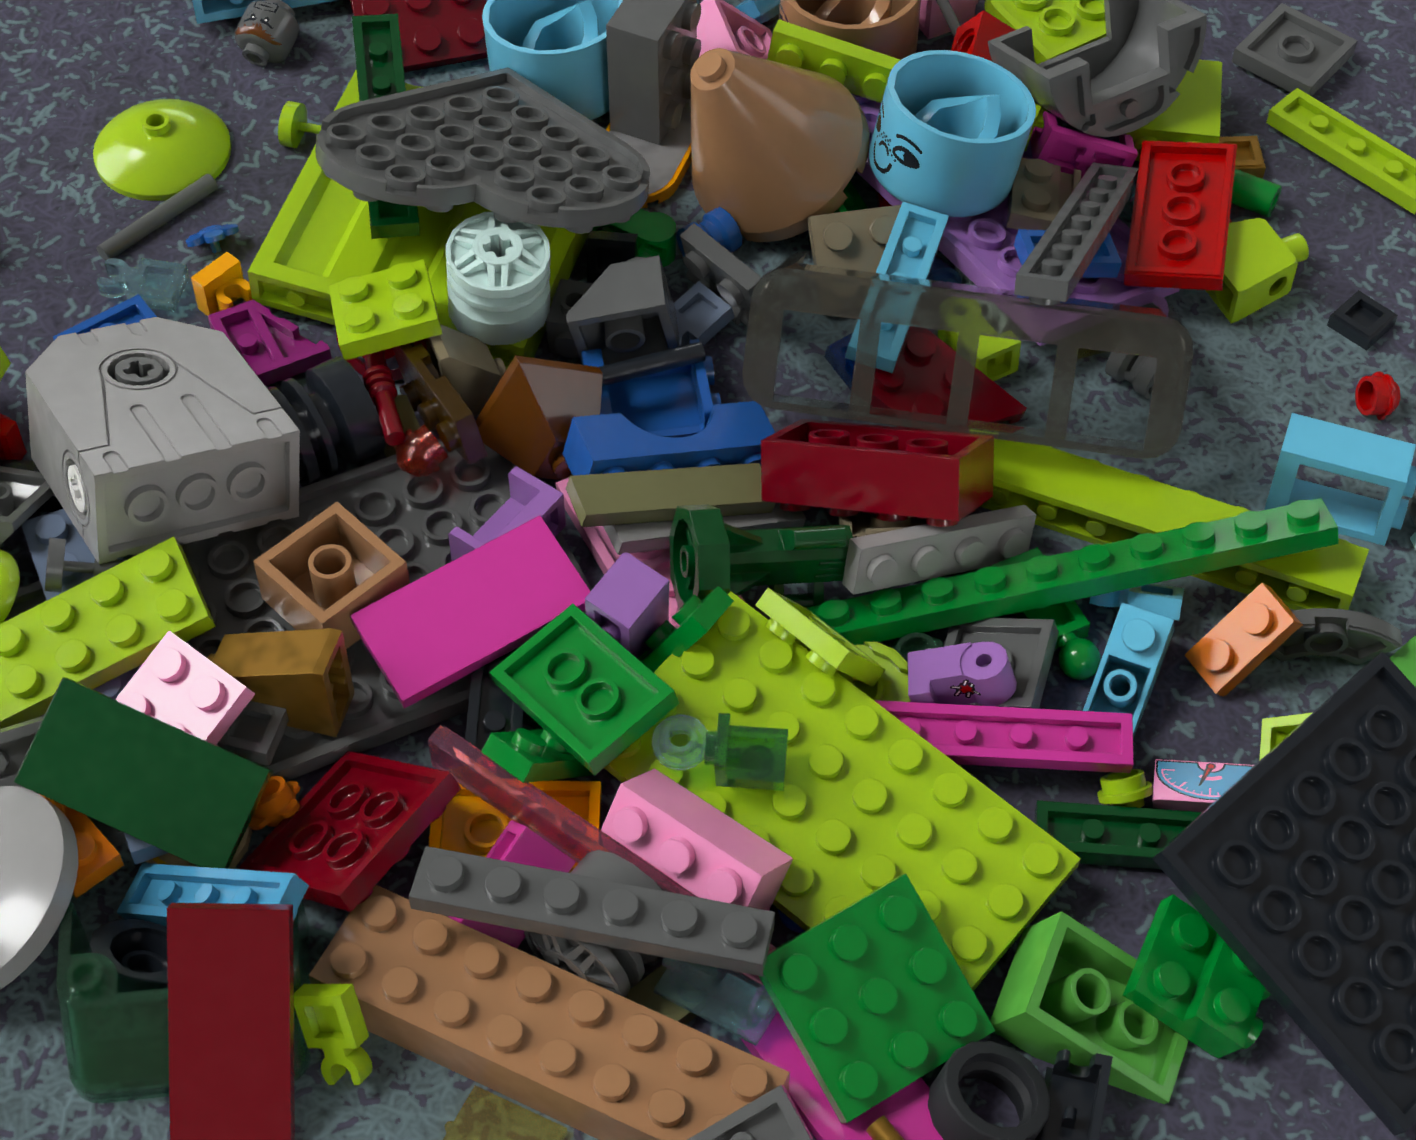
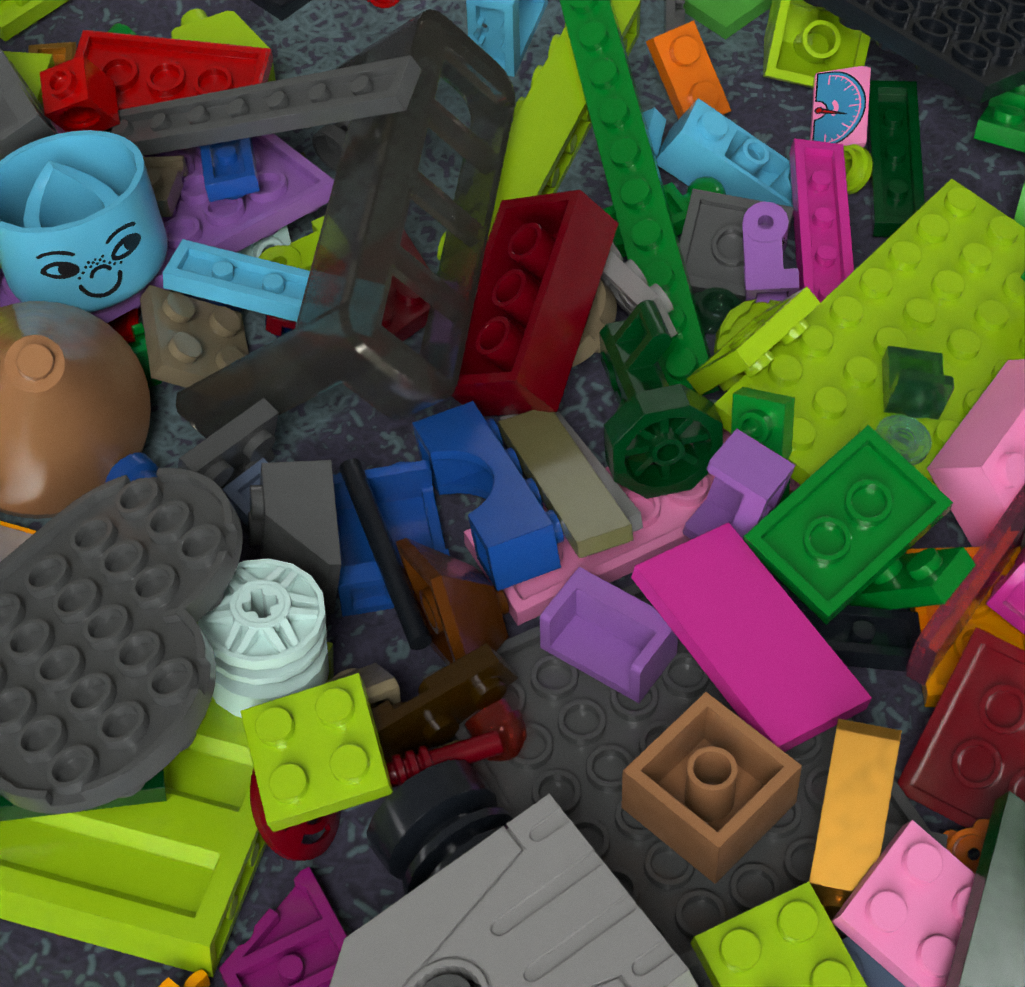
camera: 90 degrees left, 0 degrees up
(1124, 135) = (79, 96): none -> red brick

